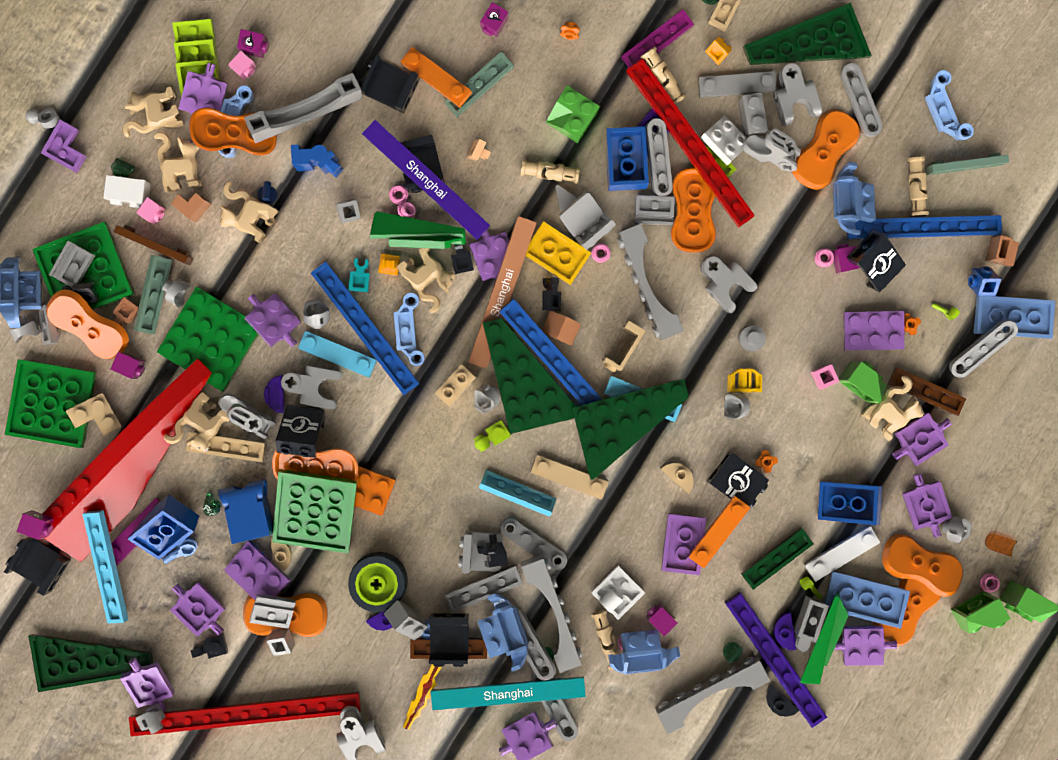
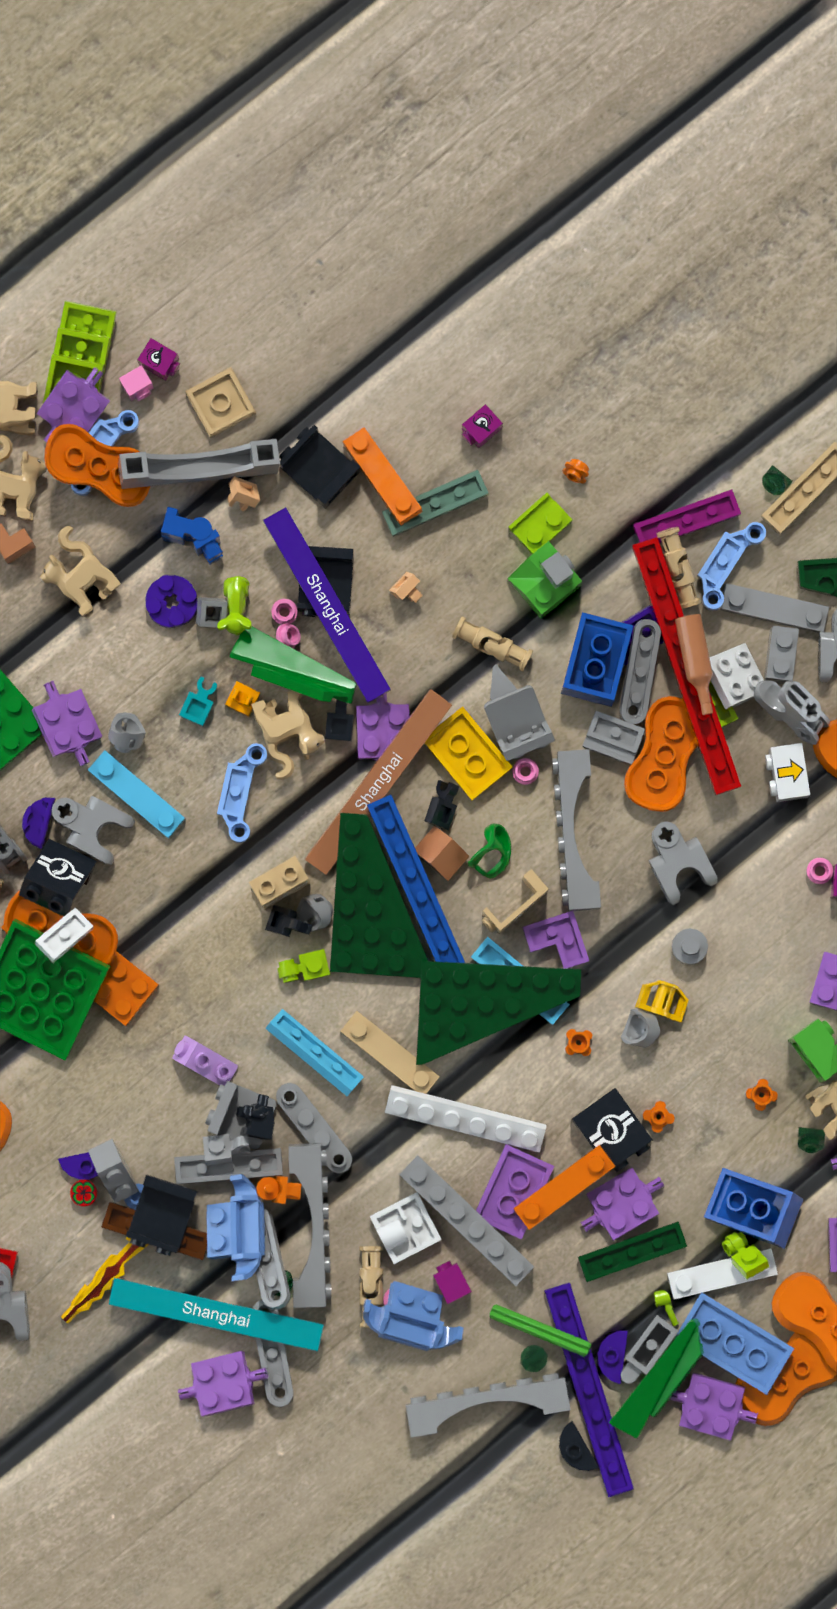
camera: 15 degrees right, 5 degrees down
(267, 193) = (113, 556): dark blue plate -> none
(306, 61) = (220, 402): none -> tan tile
(310, 204) = (166, 587): none -> dark purple plate
(317, 471) = (64, 935): none -> white plate
(342, 119) = (243, 492): none -> light nougat tile
(360, 190) = (236, 591): none -> lime animal
(365, 328) = (184, 772): blue plate -> none
(389, 573) = (72, 1105): wheel -> none
(390, 638) = (83, 1192): none -> tile
(443, 524) = (204, 1061): none -> lavender bracket
(466, 410) = (284, 920): none -> black plate
(475, 579) = (220, 1148): none -> light grey plate
(524, 596) = (278, 1189): none -> orange hips
(556, 76) = (540, 523): none -> lime plate
(581, 102) = (557, 569): none -> light grey plate
(597, 307) = (498, 840): none -> green piece
(635, 505) = (465, 1118): none -> white plate
(658, 575) = (466, 1220): none -> light grey arch
(660, 356) = (563, 933): none -> medium lavender plate
(680, 475) = (537, 1098): tan plate -> none
(692, 61) = (723, 561): none -> light blue plate
(692, 432) = (584, 1037): none -> orange plate
(697, 134) = (696, 657): none -> nougat piece
(718, 50) = (763, 557): light orange tile -> none
(731, 632) = (540, 1330): none -> bright green axle
(760, 528) = (622, 1204): none -> medium lavender plate
(782, 196) = (788, 772): none -> white brick
(830, 376) = (779, 1027): bright pink plate -> none
(837, 423) = (761, 1102): none -> orange plate
(858, 541) = (747, 1261): none -> lime plate
(874, 444) = (810, 1139): none -> clear green plate

